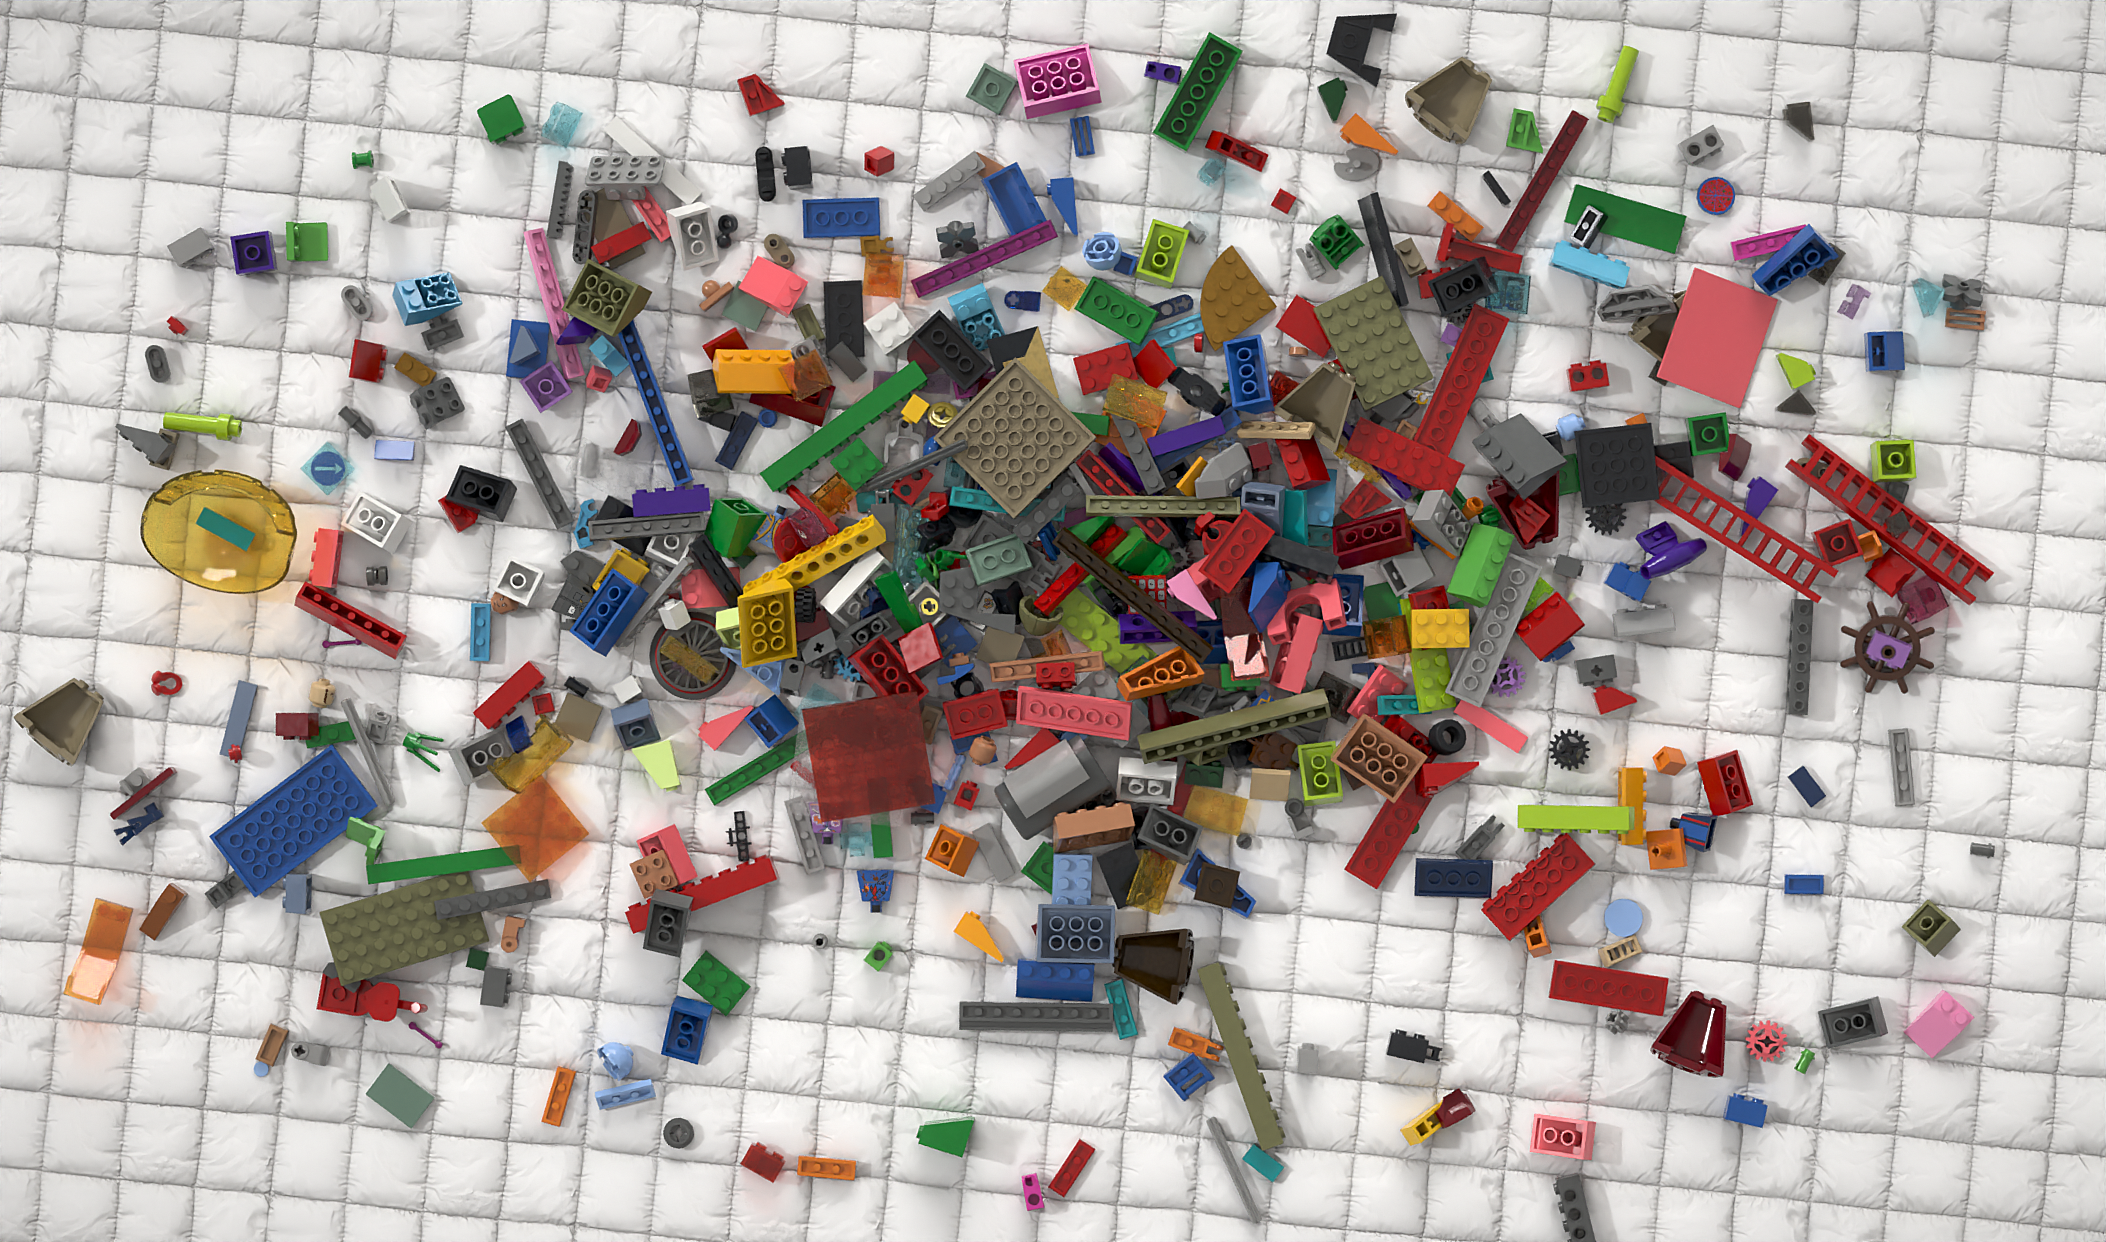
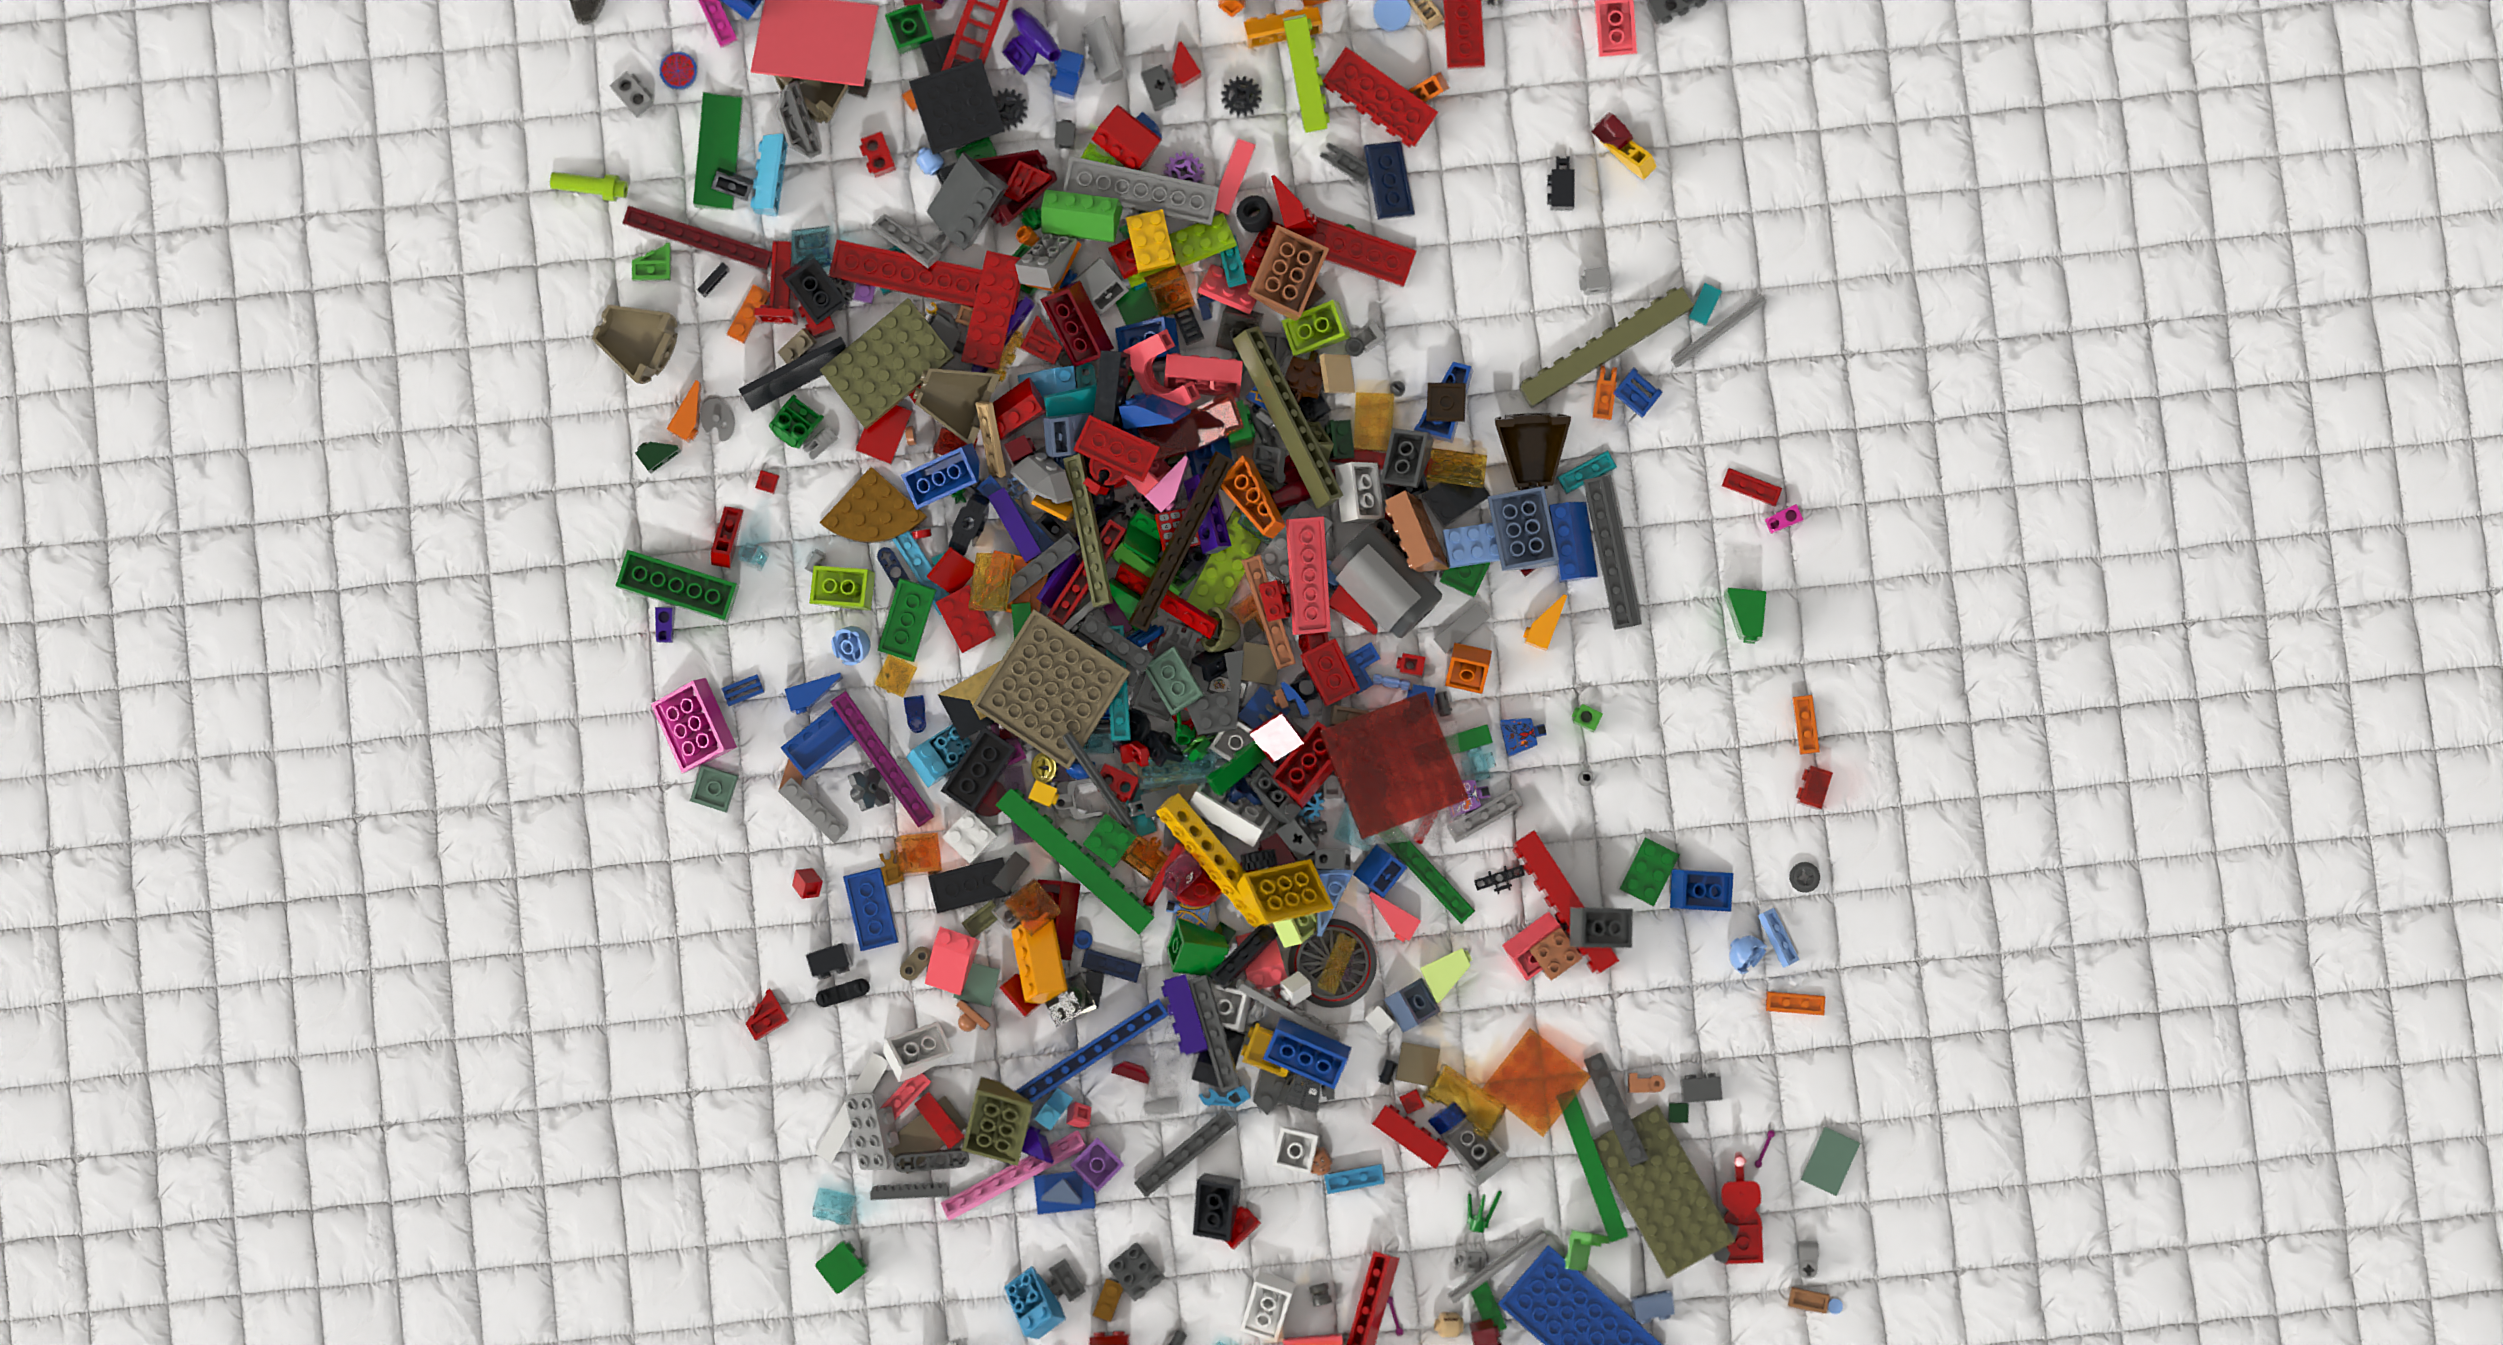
camera: 100 degrees left, 5 degrees down
(394, 450) = (1192, 1304): slope -> none
(724, 240) = (916, 1019): black plate -> none
(933, 601) = (1239, 741): light yellow bush -> none
(982, 750) = (1364, 657): nougat head -> none
(1126, 264) = (859, 619): blue panel -> none
(1351, 41) = (598, 449): black wing -> none
(1493, 387) = (906, 241): none -> light grey tile

